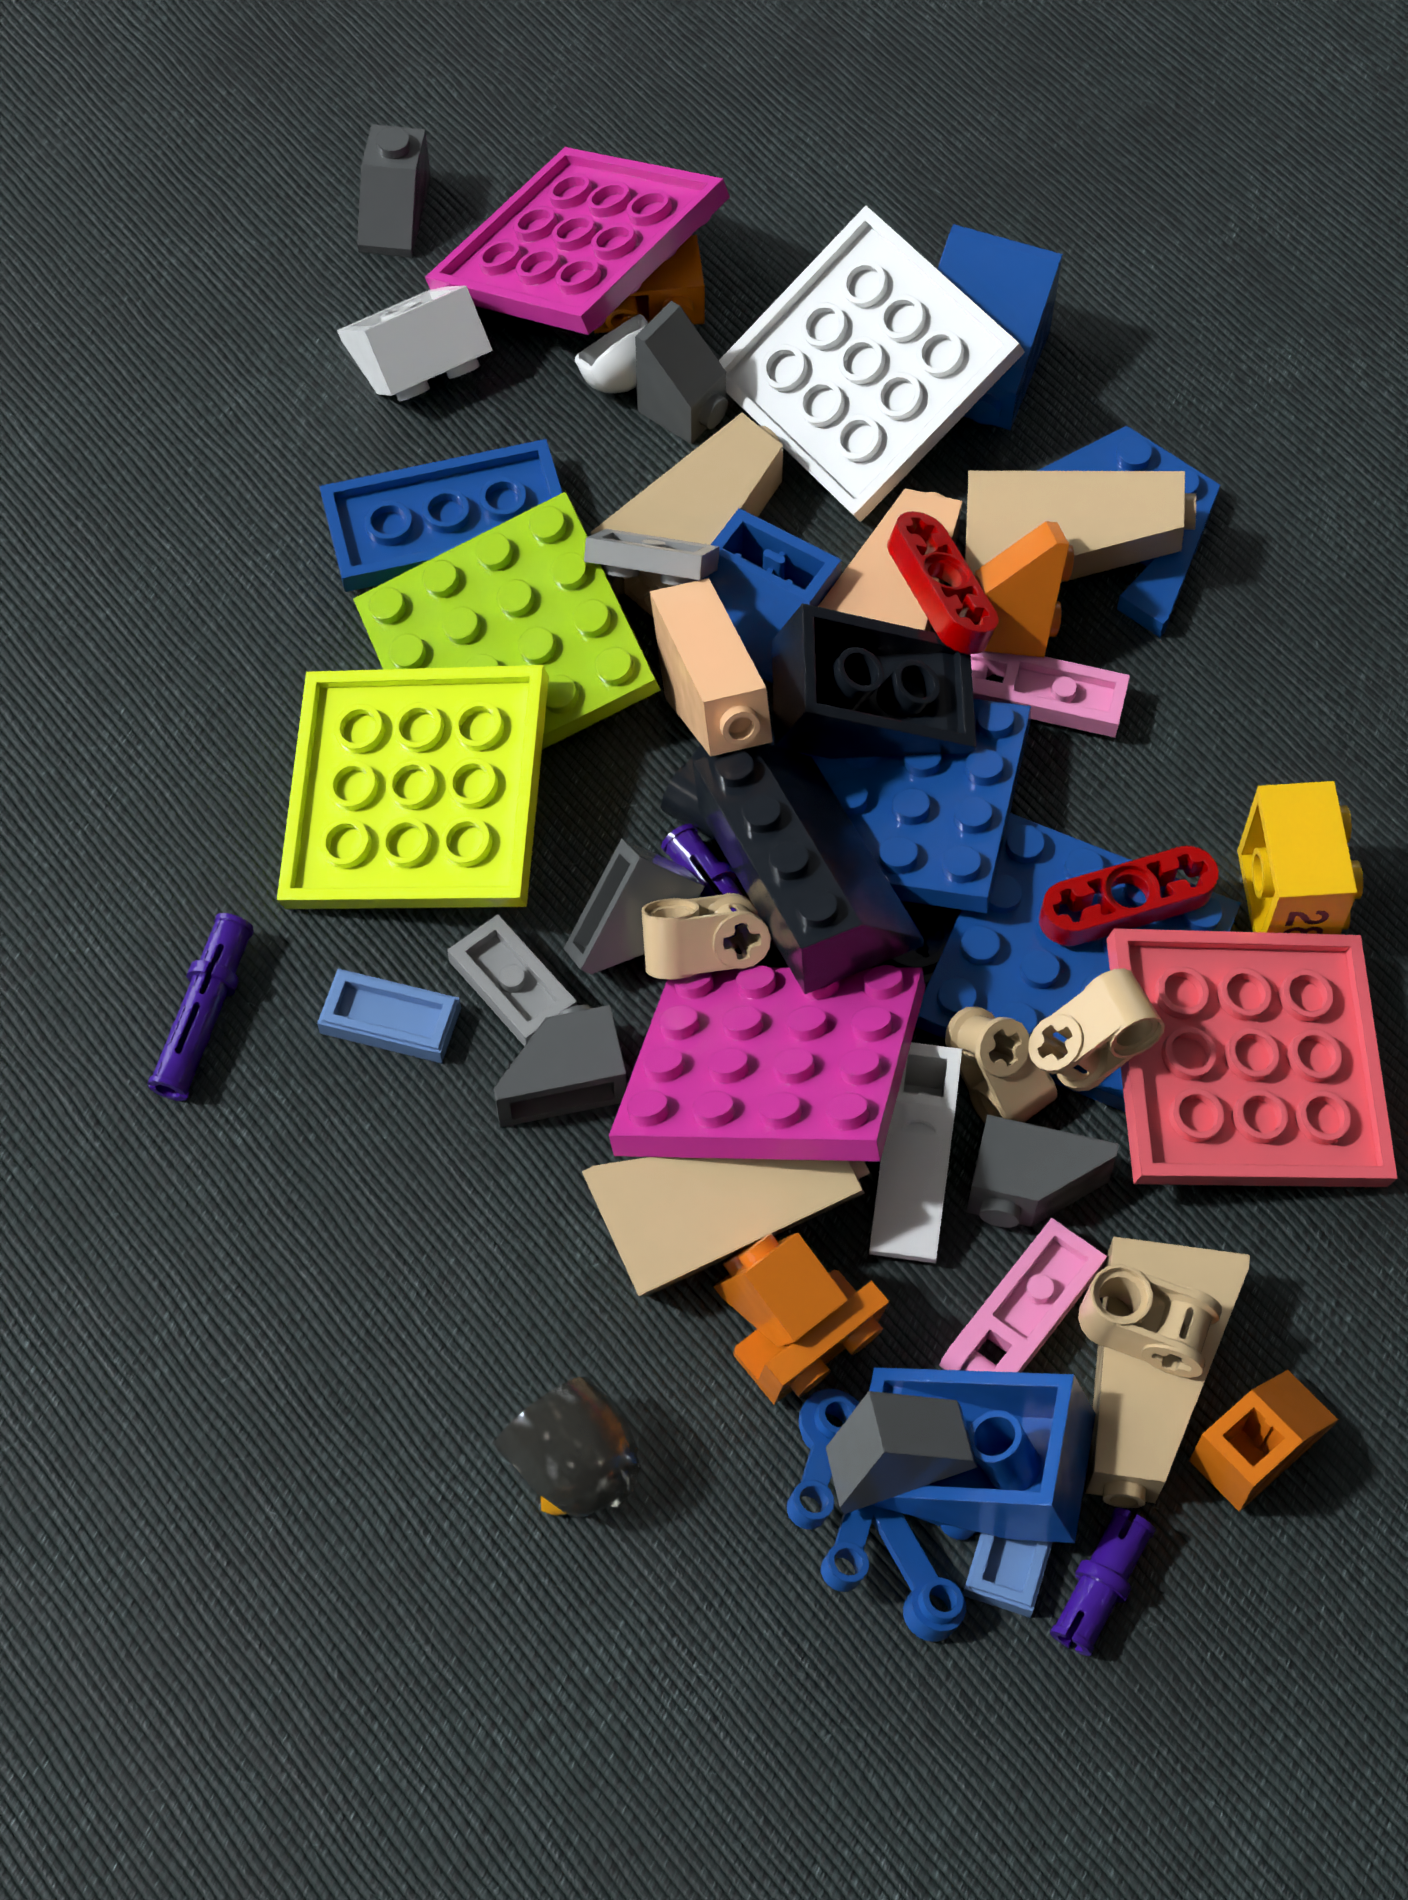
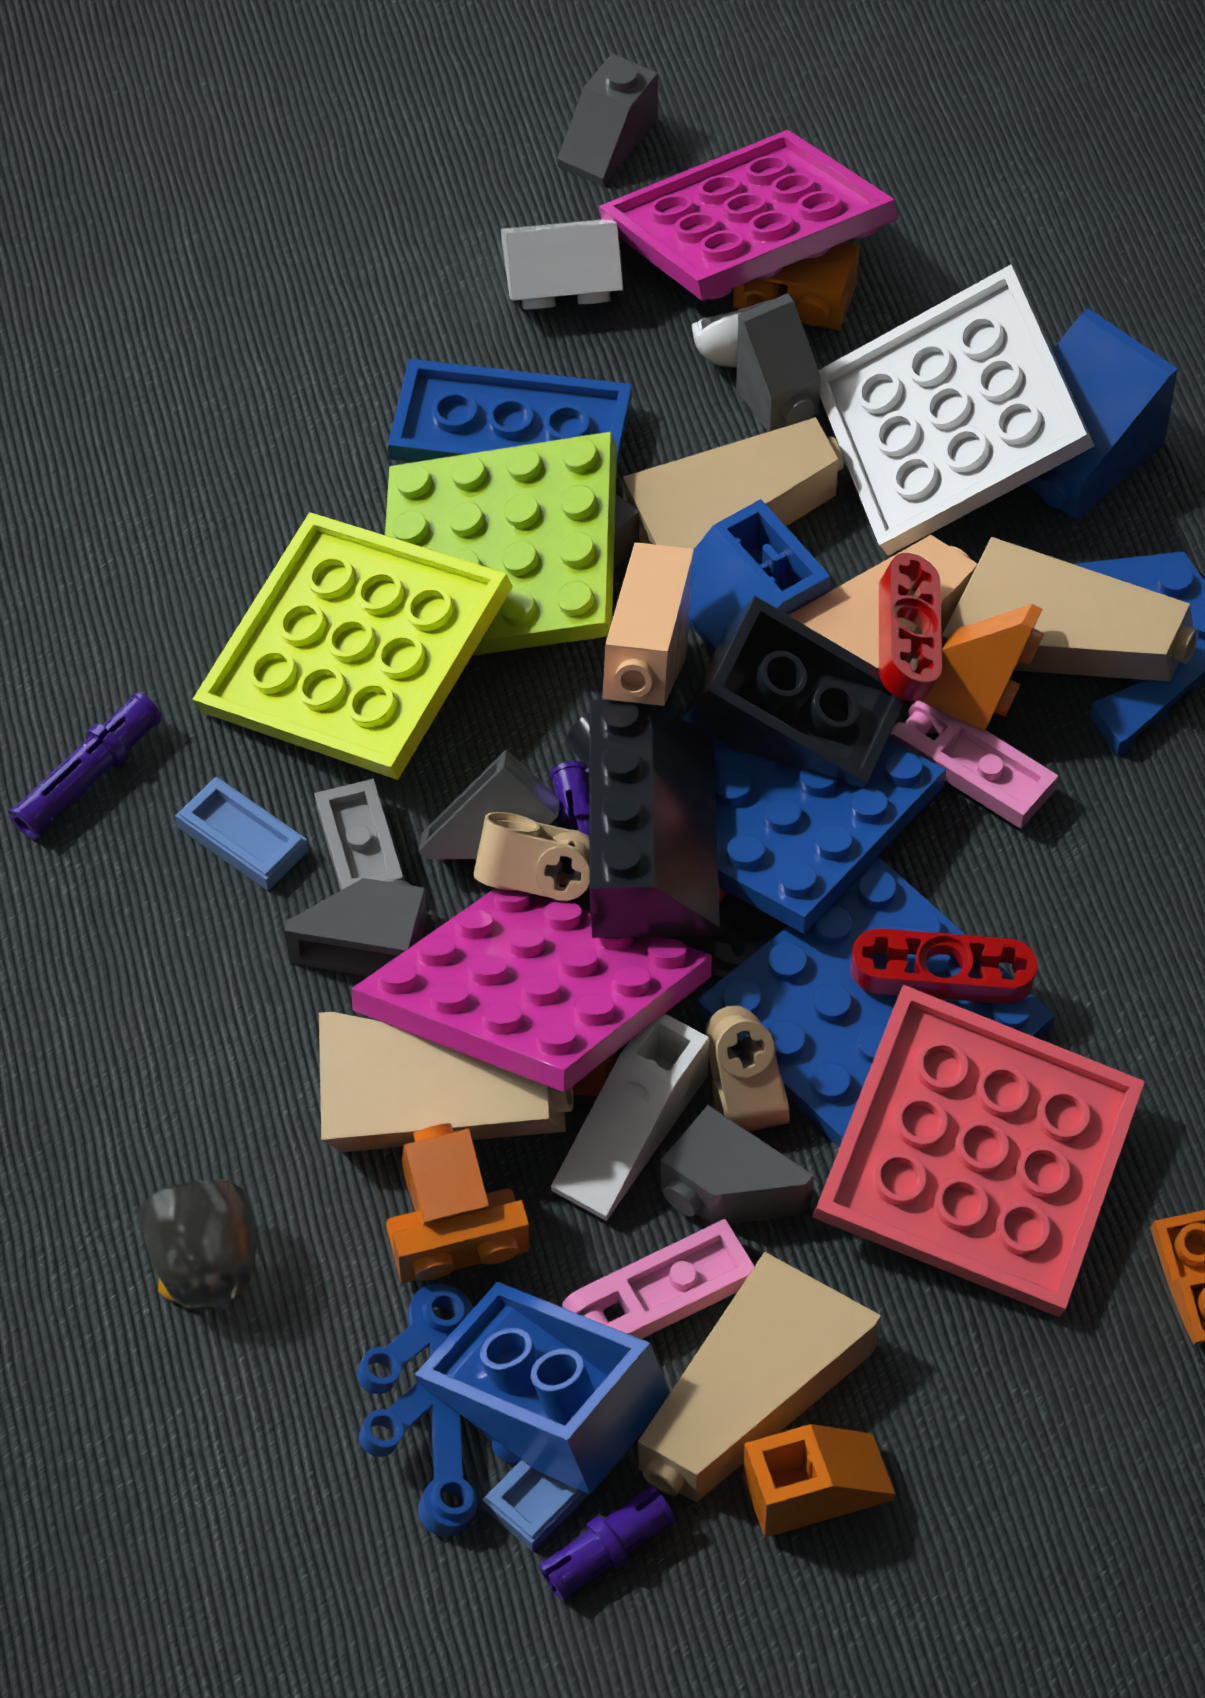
camera: 25 degrees right, 5 degrees down
(629, 553) = (642, 506): light grey plate -> none
(896, 1447) = (472, 1346): dark grey slope -> none
(1102, 1030) = (840, 1065): tan piece -> none
(1155, 1319) = (758, 1337): tan piece -> none
(1299, 860) = (1118, 991): yellow brick -> none

